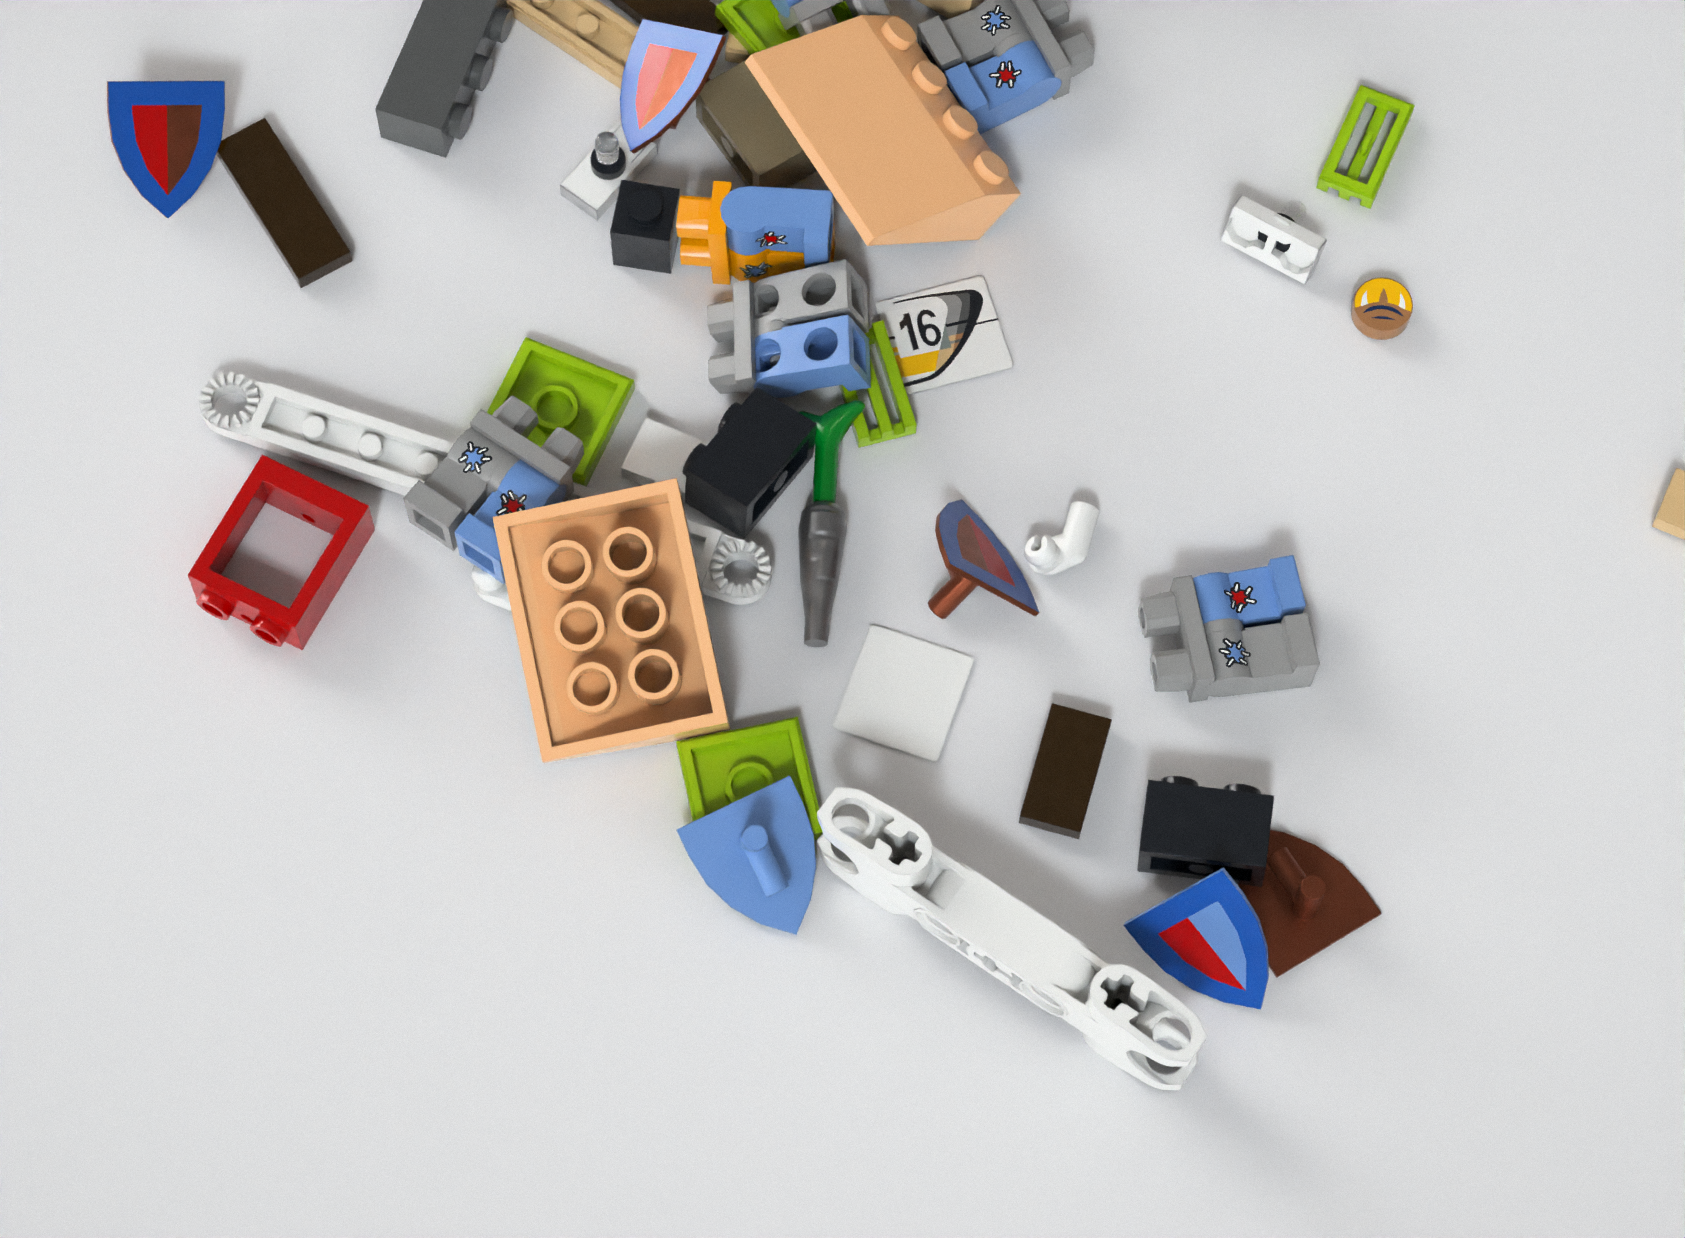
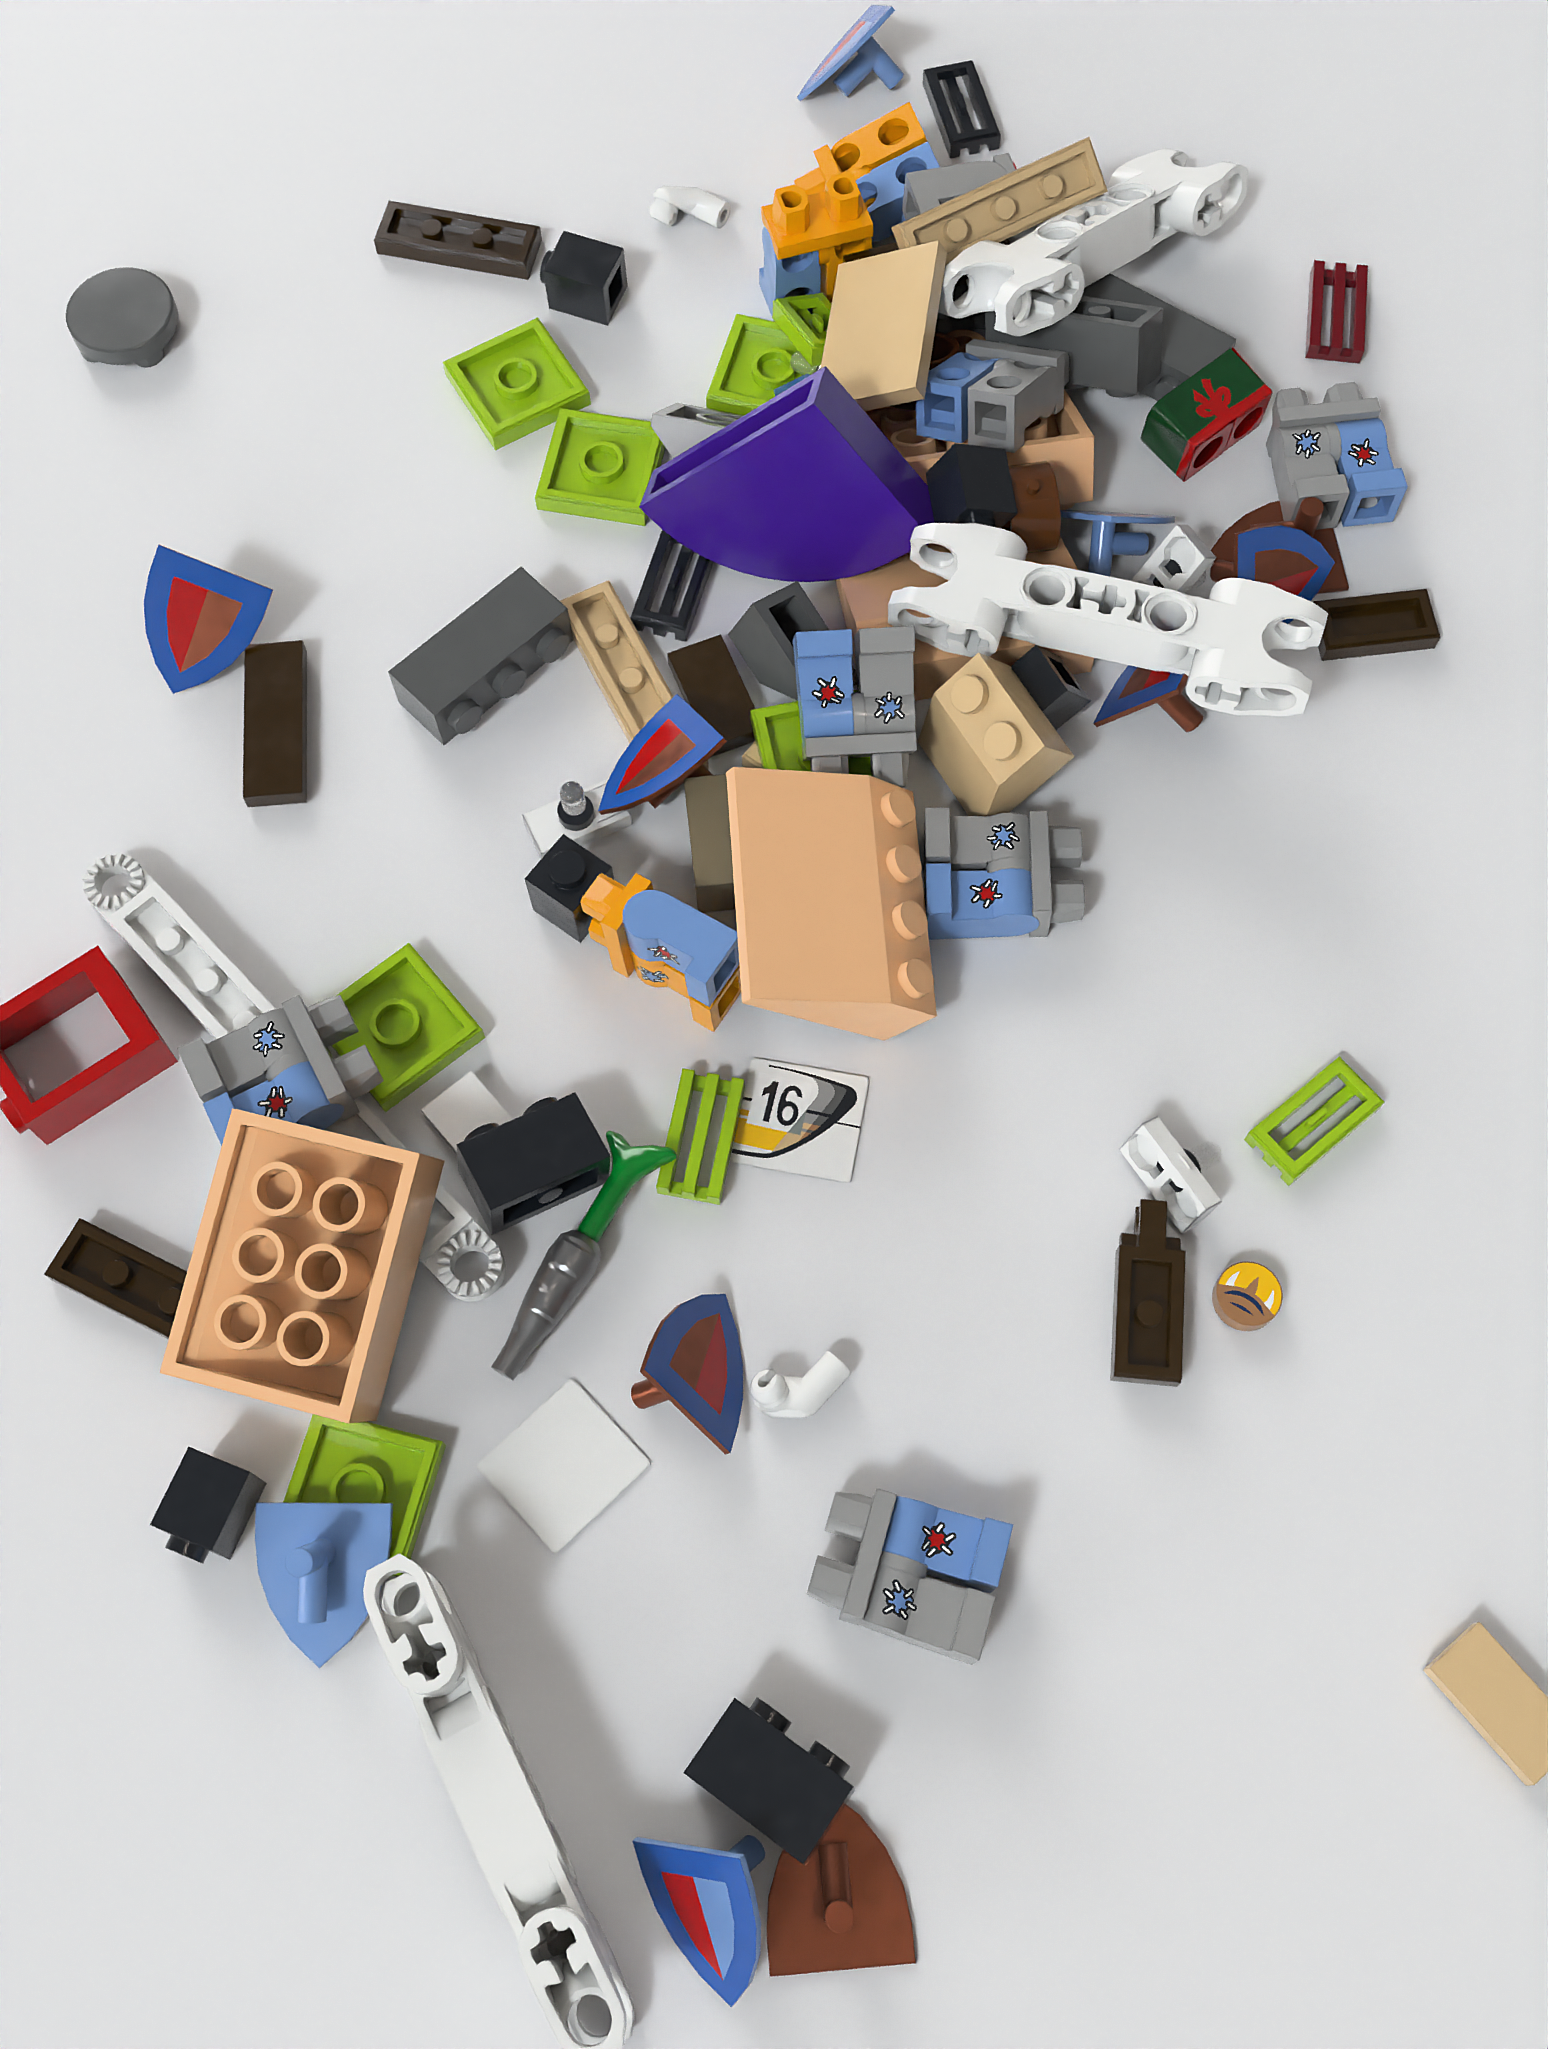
camera: 30 degrees right, 0 degrees up
(455, 721) = (119, 1277): none -> dark brown tile
(635, 852) = (207, 1506): none -> black brick
(793, 333) = (648, 1055): hips -> none
(1065, 771) = (671, 1632): dark brown tile -> none
(1307, 345) = (1148, 1301): none -> dark brown hinge

